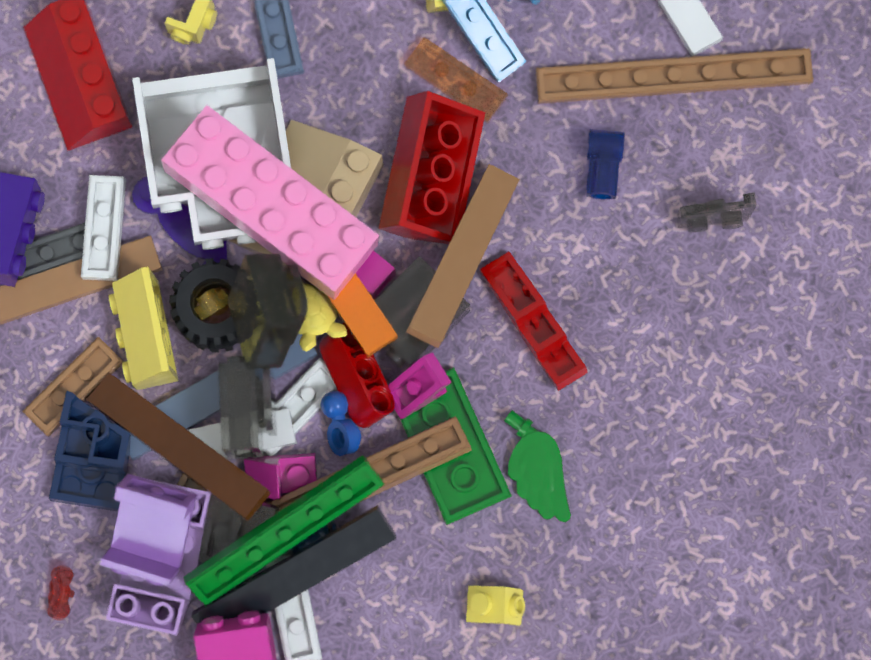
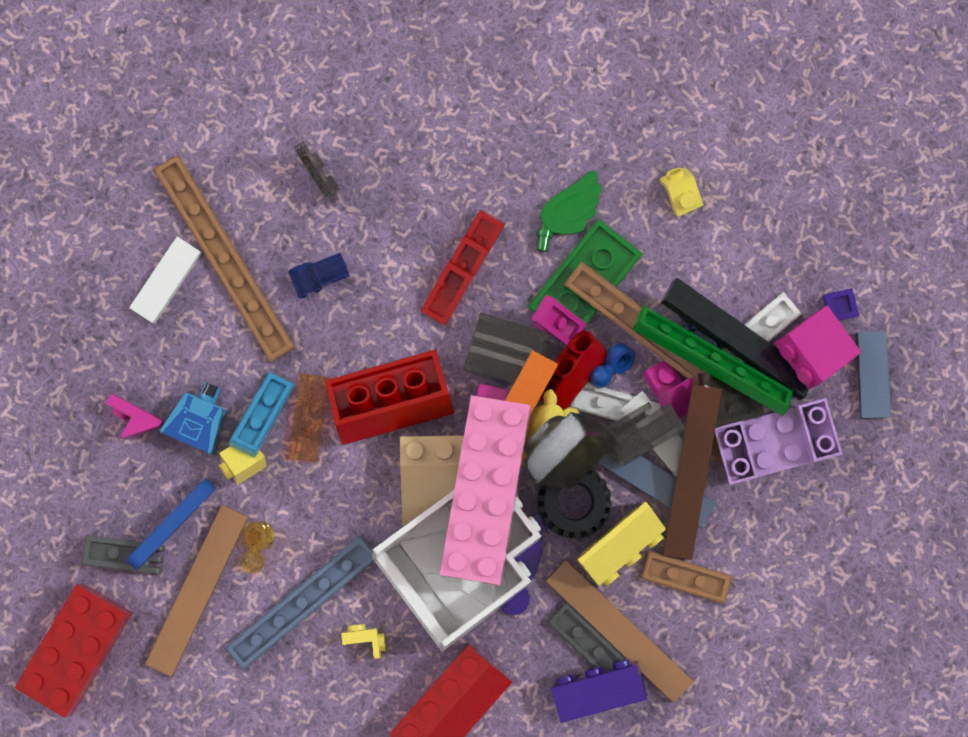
camera: 120 degrees left, 5 degrees up
(60, 592) = (838, 502): clear red piece -> none
(88, 457) = (732, 534): dark blue slope -> none
(103, 228) = (559, 618): white tile -> none
(149, 530) = (765, 456): panel -> none
(212, 303) = (575, 503): clear yellow plate -> none
(462, 256) = (445, 336): medium nougat tile -> none

